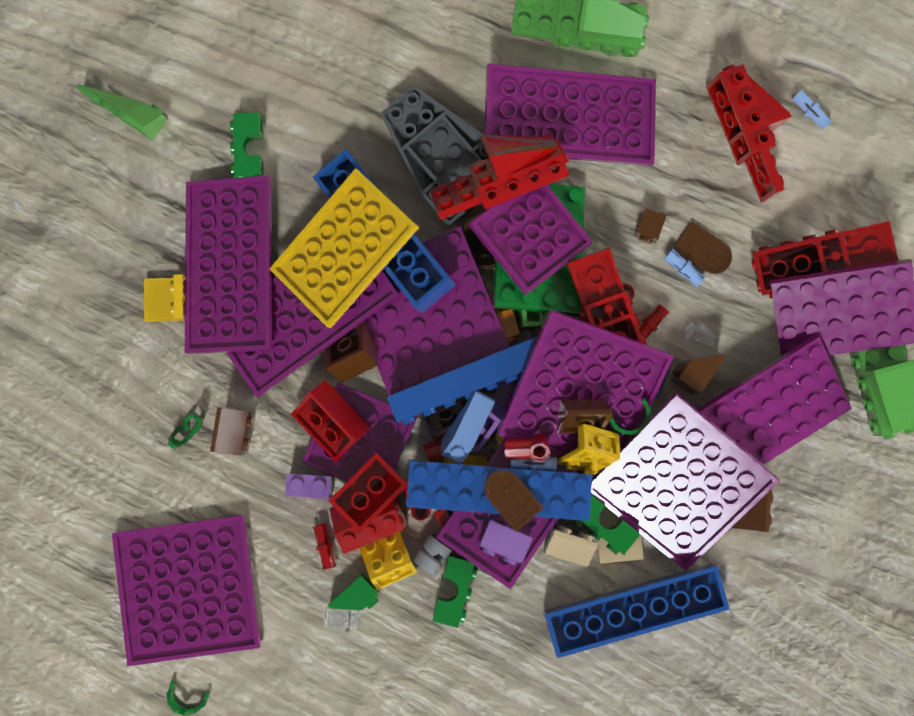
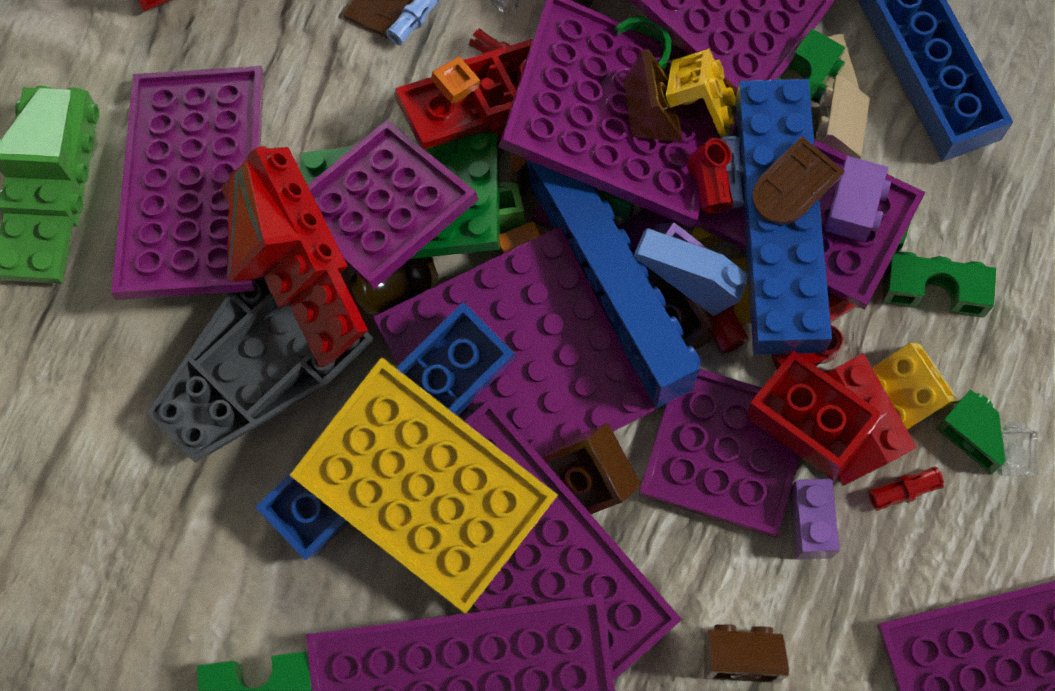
camera: 90 degrees left, 15 degrees down
(330, 420) = (706, 490): red slope -> none
(431, 555) = (890, 320): light grey wheel -> none
(608, 286) = (455, 80): none -> orange tile
(650, 226) = (354, 64): reddish brown brick -> none

